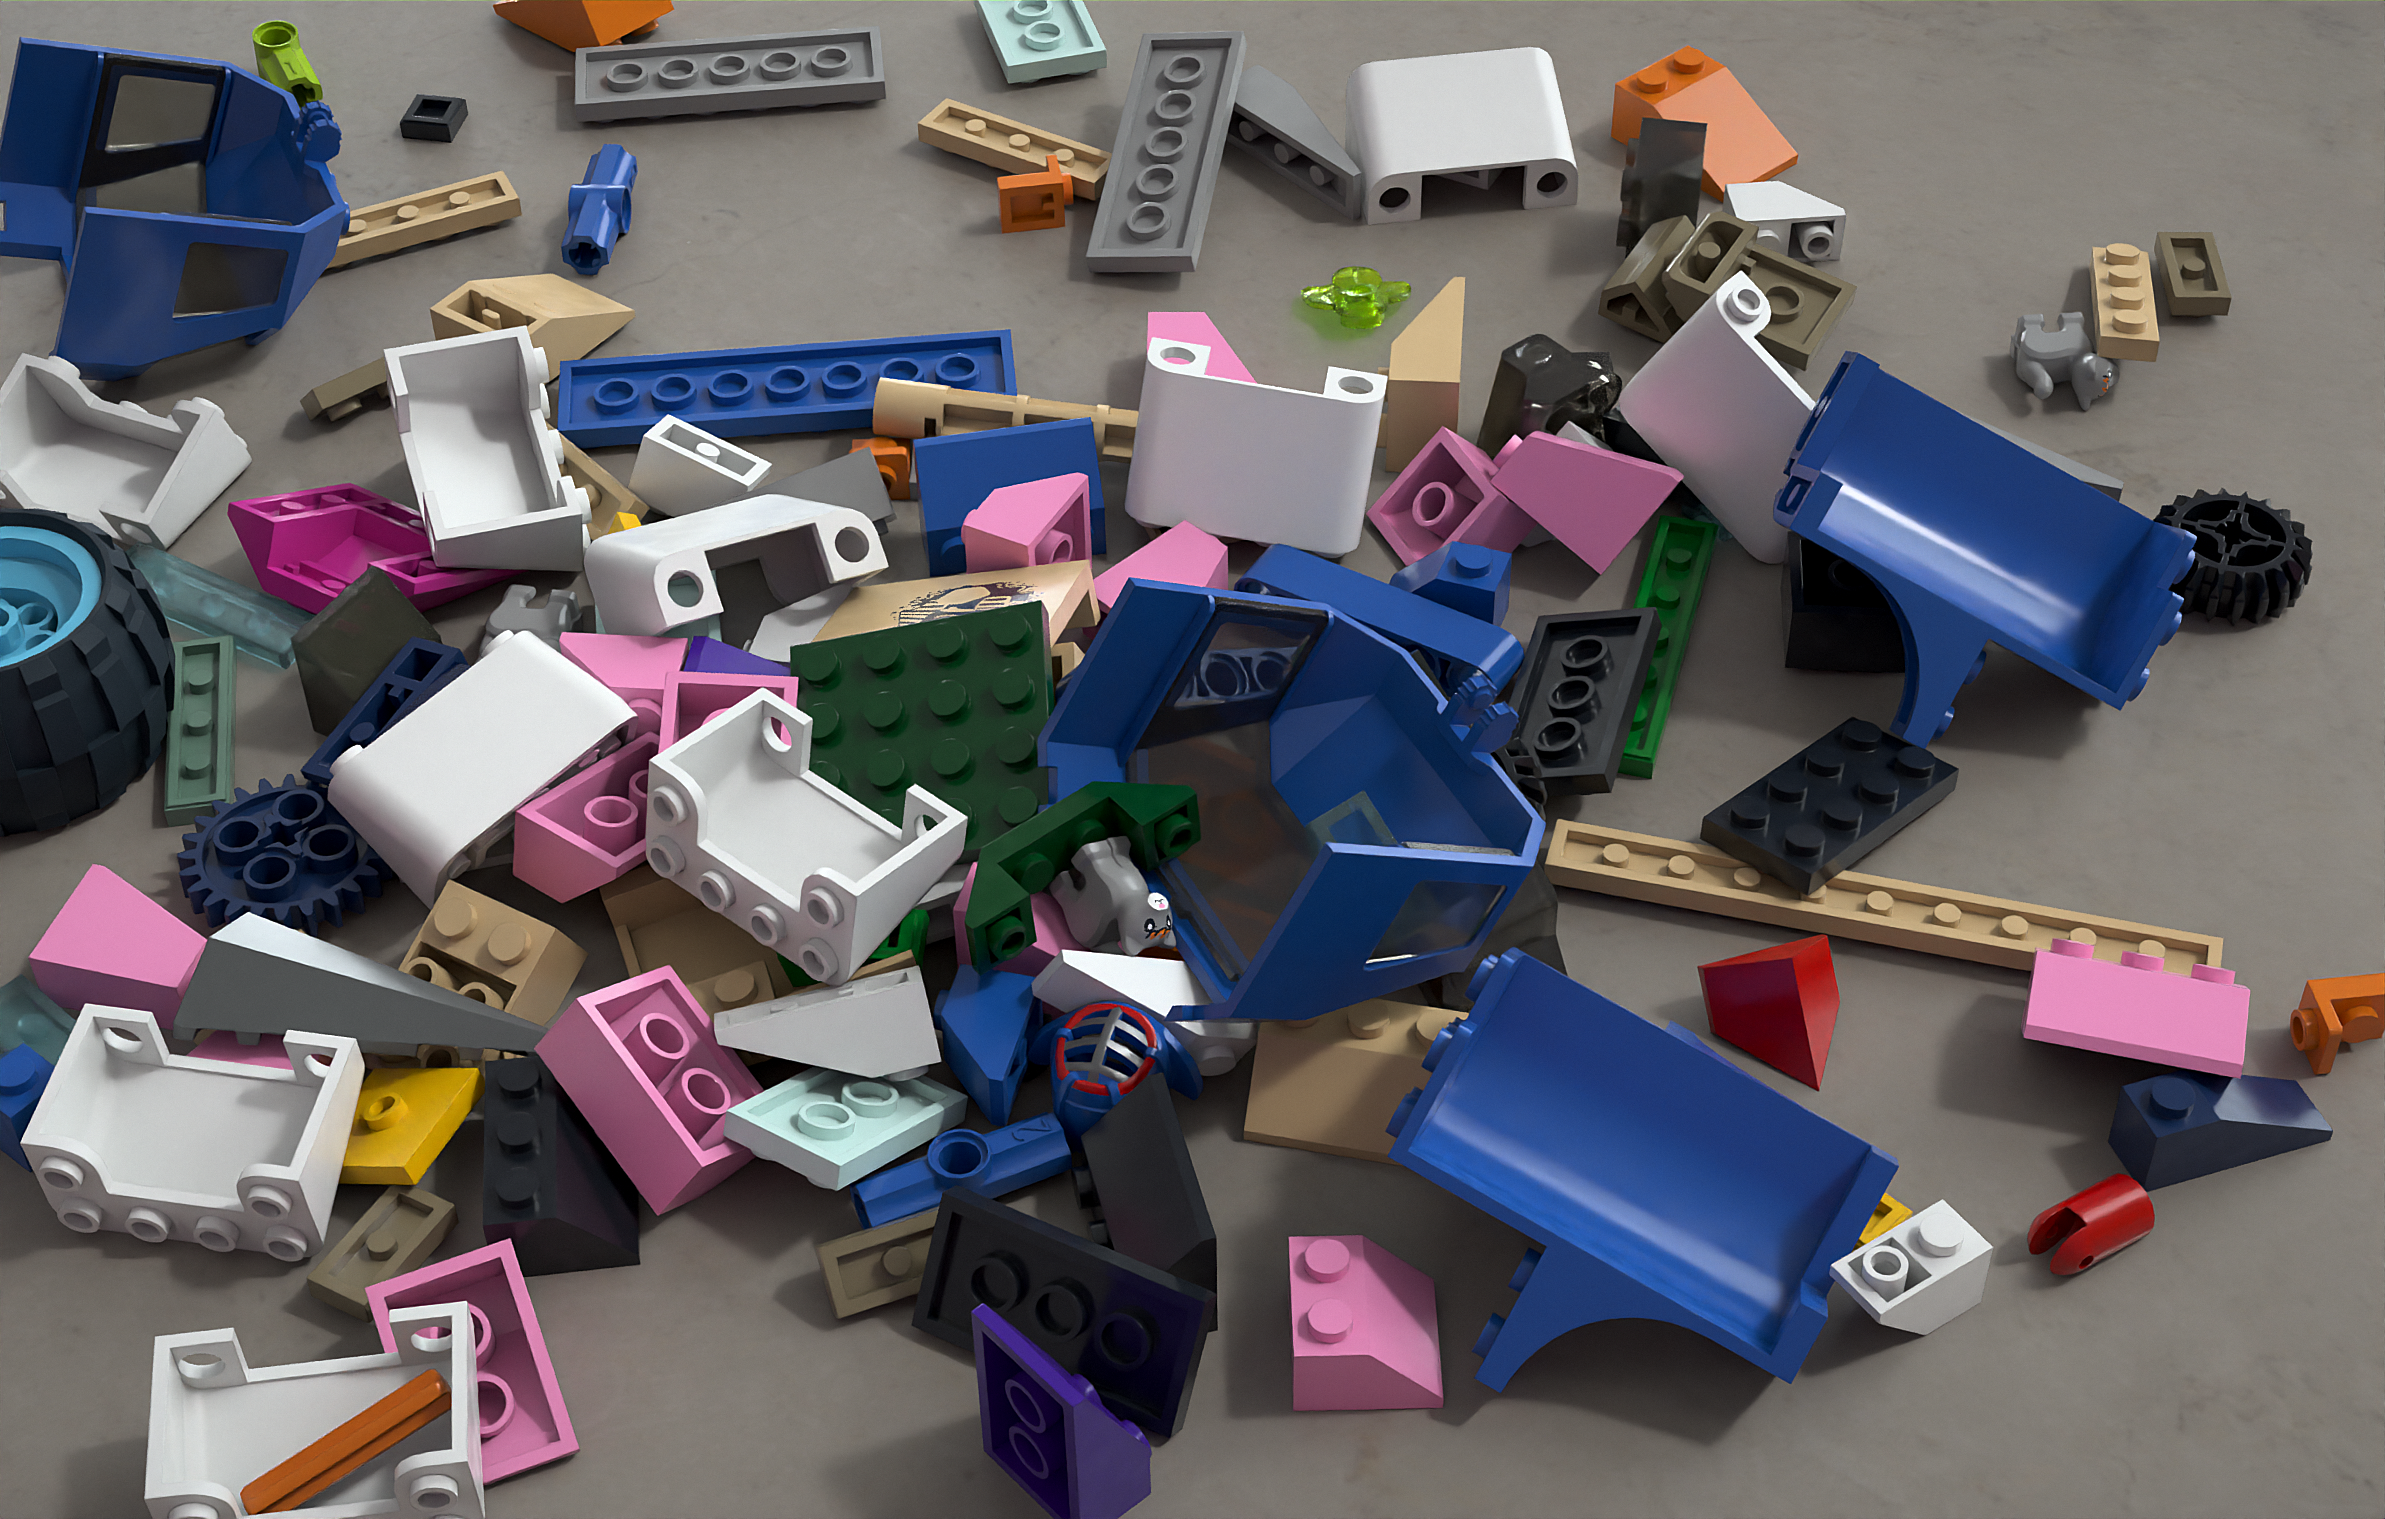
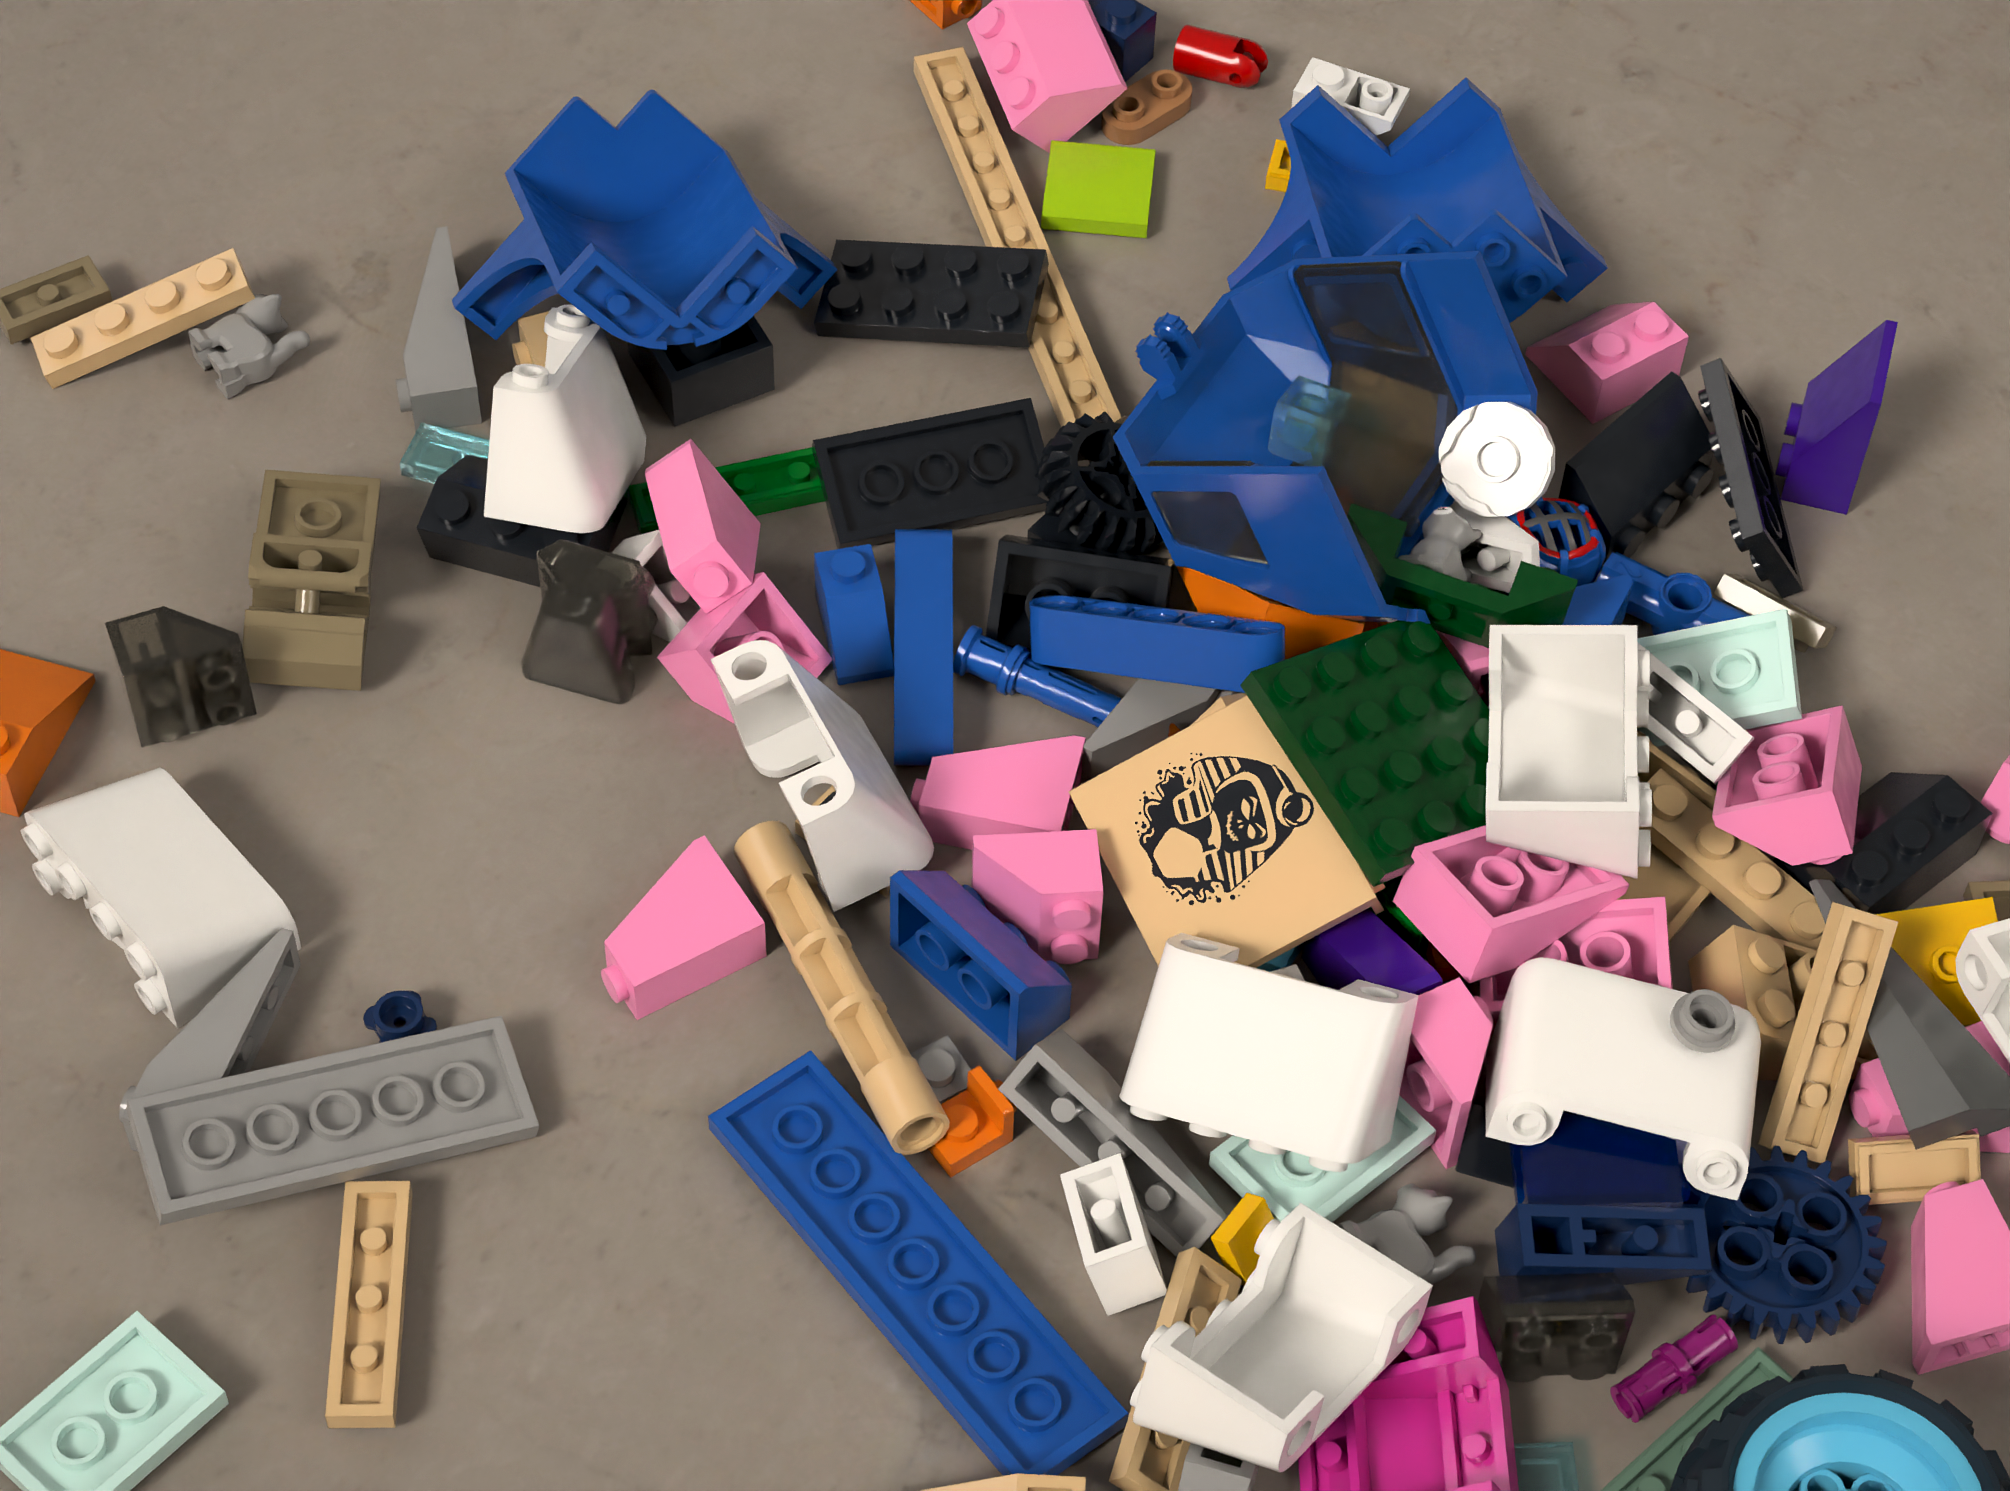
camera: 125 degrees left, 10 degrees up
(269, 739) = (1674, 1368): none -> magenta pin
(399, 930) = (1828, 1032): none -> tan plate
(455, 773) = (1708, 1008): none -> light grey plate
(1034, 199) = (463, 1224): orange bracket -> none
(1187, 978) = (1497, 459): none -> white tile
(1246, 233) = (398, 1007): none -> dark blue plate
(1357, 296) = (445, 889): clear neon green plate -> none
(1423, 378) = (594, 719): tan slope -> none
(1777, 1005) = (1151, 250): red slope -> none
(1788, 219) = (146, 580): white slope -> none
(1928, 1026) = (1098, 189): none -> lime tile
(2038, 1117) = (1147, 107): none -> medium nougat plate
(2245, 558) = (432, 160): black gear -> none

